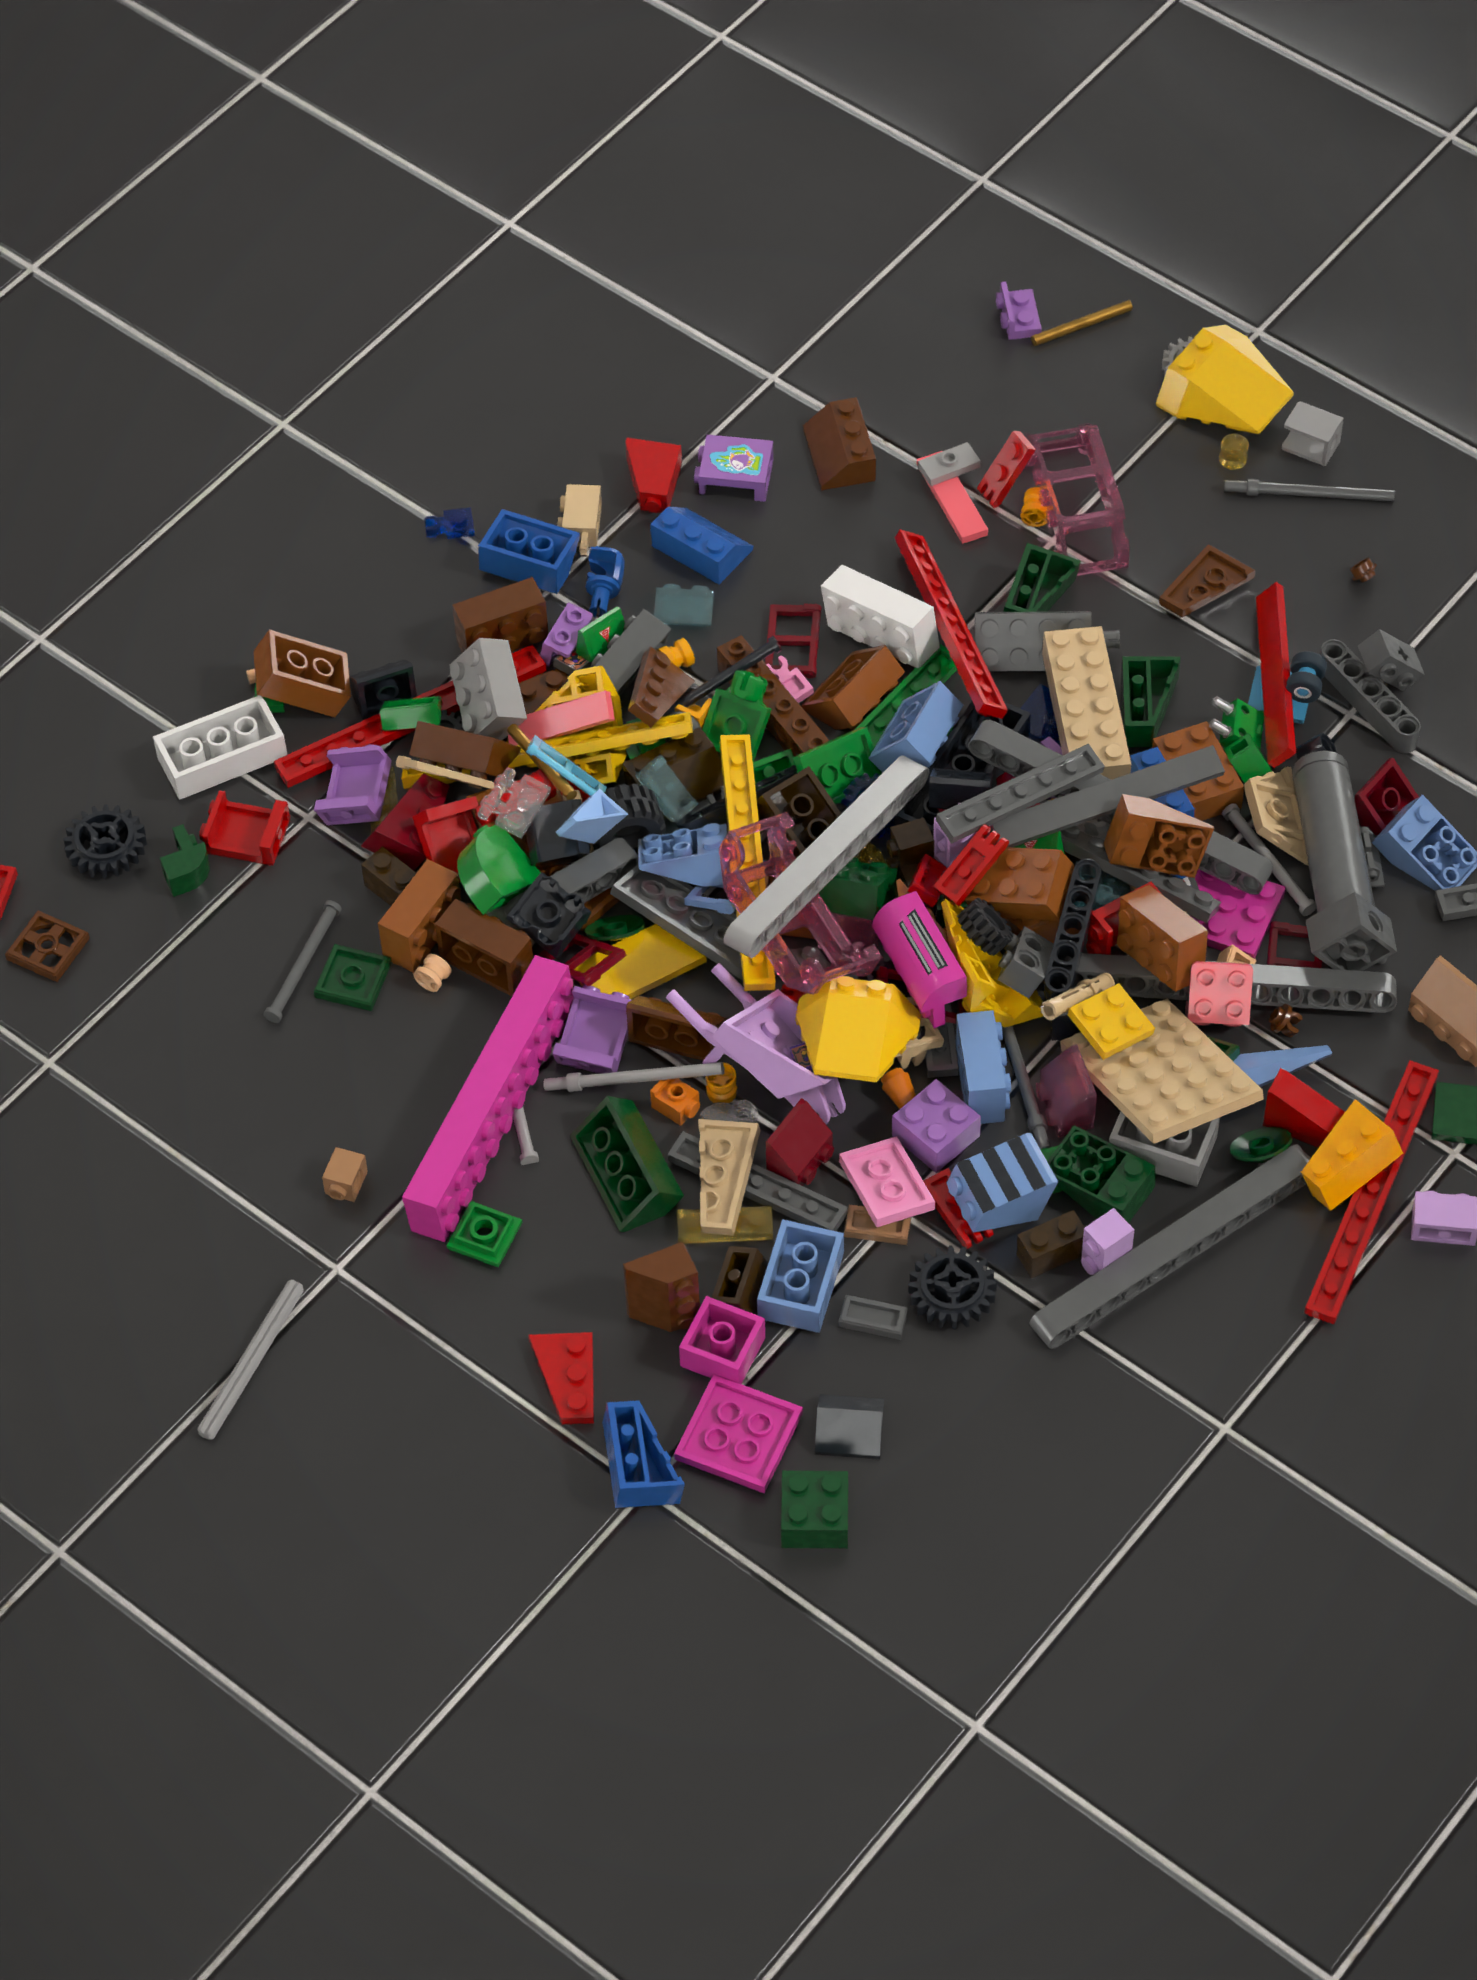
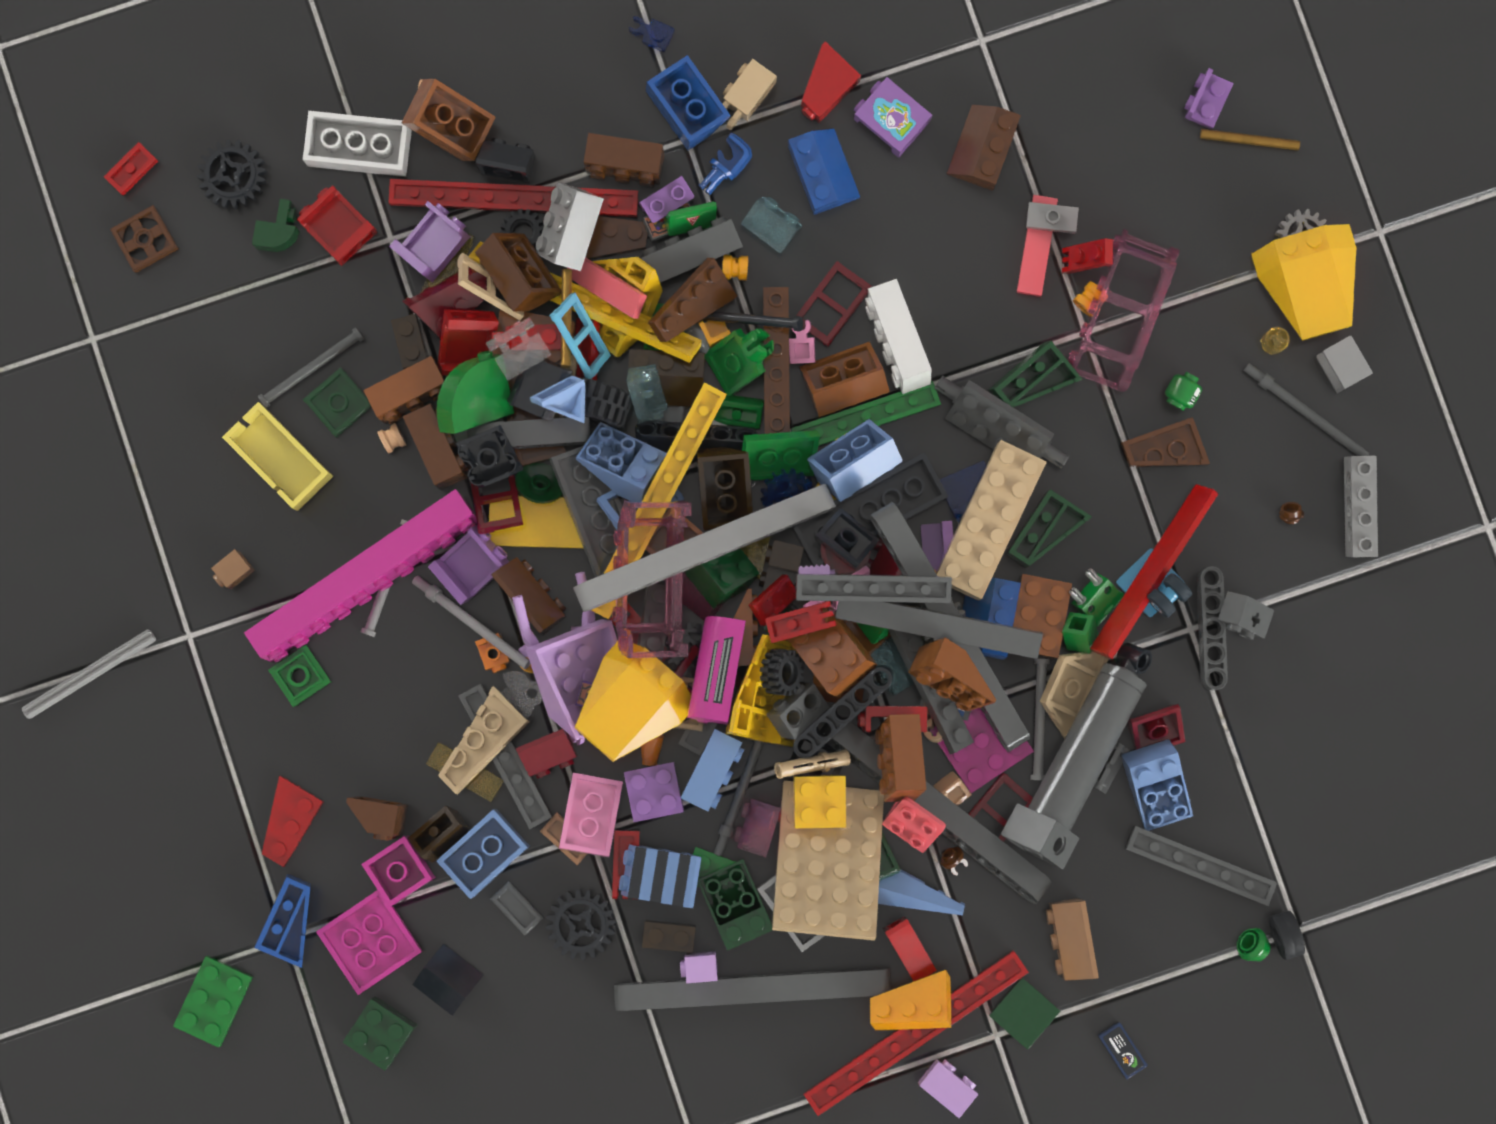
camera: 30 degrees right, 30 degrees up
(324, 1045) = (278, 457): none -> light yellow piece
(407, 712) = (509, 201): green slope -> none
(607, 1593) = (213, 1001): none -> green plate
(626, 1164) = (426, 684): dark green slope -> none
(951, 625) = (944, 378): red plate -> none
(1182, 529) = (1183, 391): none -> green head
(1261, 1144) = (877, 951): dark green dish -> none
(1422, 527) = (1360, 506): none -> light grey brick

